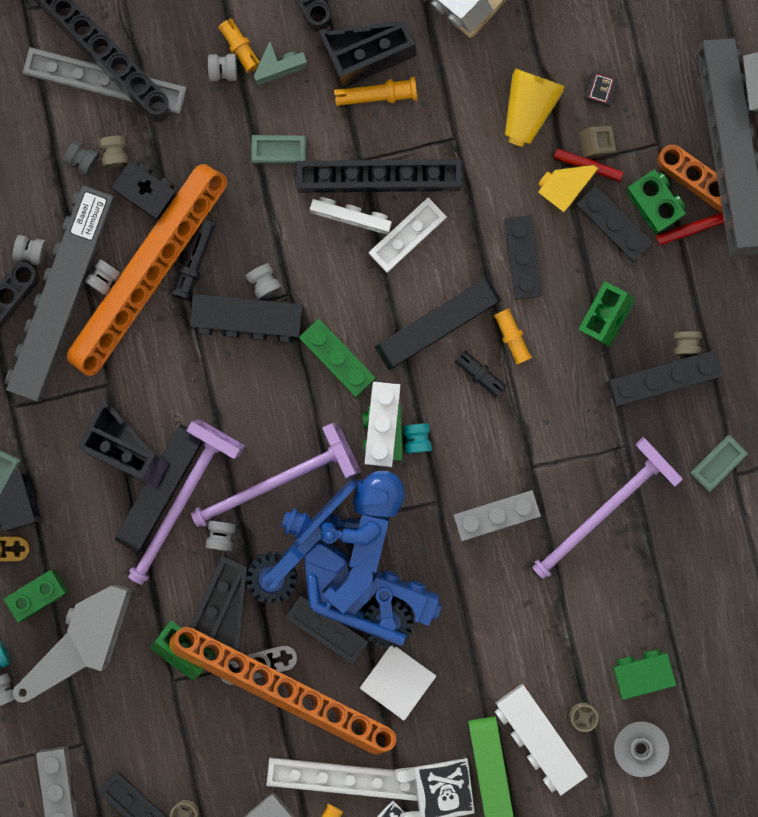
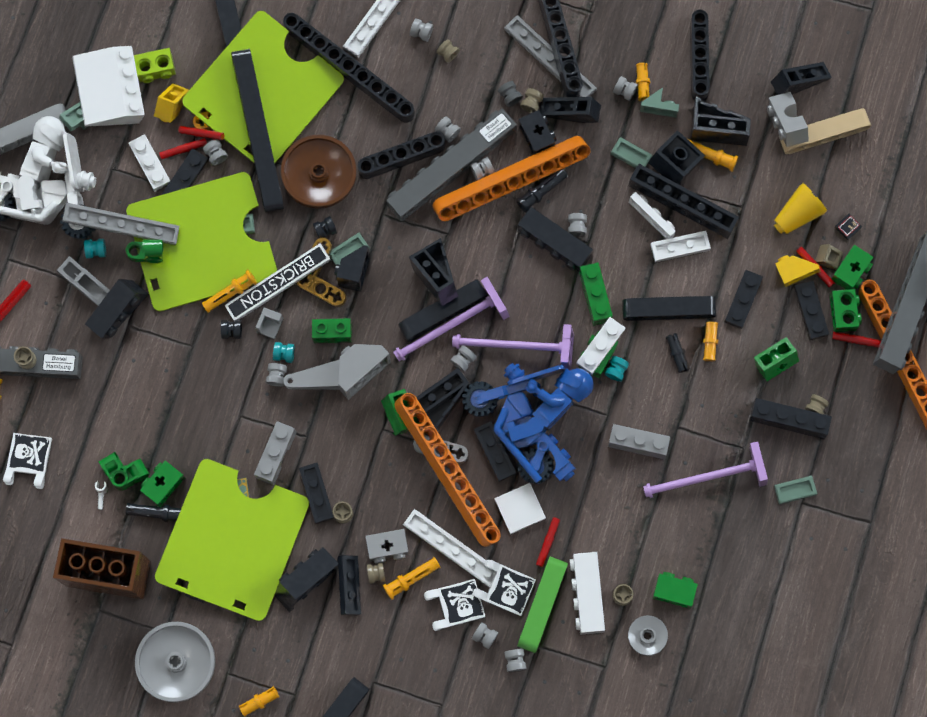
camera: 30 degrees right, 10 degrees down
(169, 134) = (571, 109): none -> black slope
(339, 124) = (676, 158): none -> black slope
(455, 703) = (548, 542): none -> red piece
(628, 156) = (855, 258): none -> green brick

